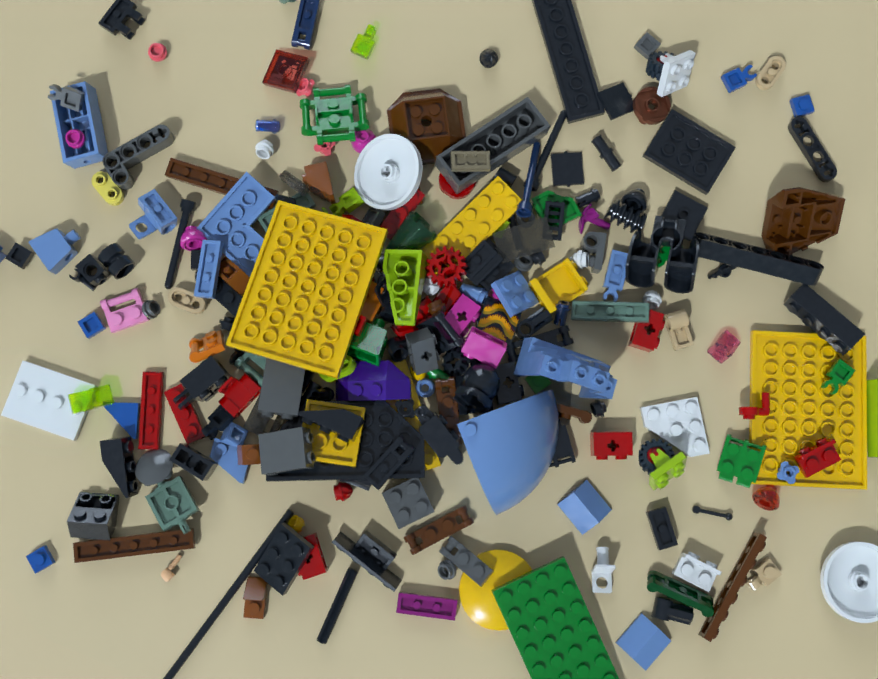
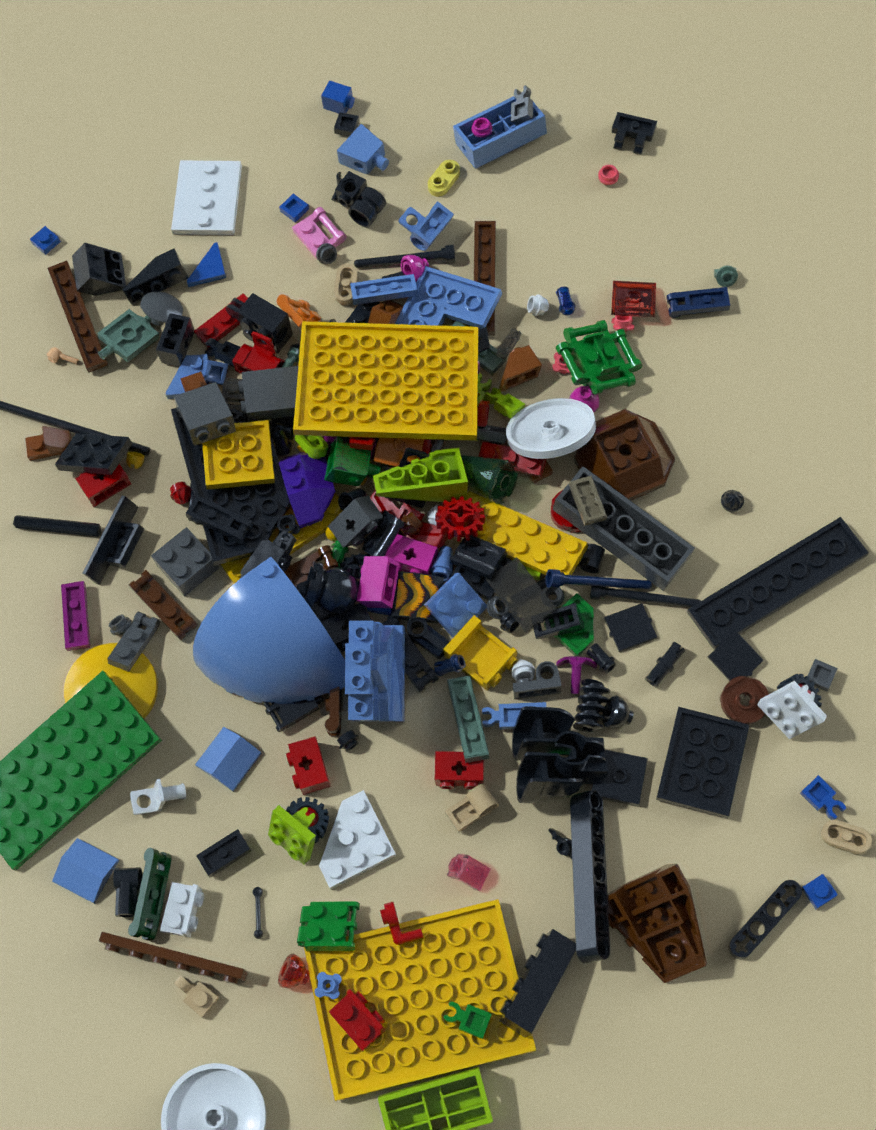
camera: 90 degrees right, 15 degrees down
(90, 399) = (216, 229): clear neon green slope -> none
(140, 154) = (512, 203): dark grey beam -> none
(151, 410) = (221, 289): red tile -> none
(338, 421) = (248, 453): black slope -> none
(364, 44) = (695, 366): clear neon green plate -> none
(425, 381) = (317, 539): medium blue plate -> none
(653, 298) = (499, 766): white plate -> none

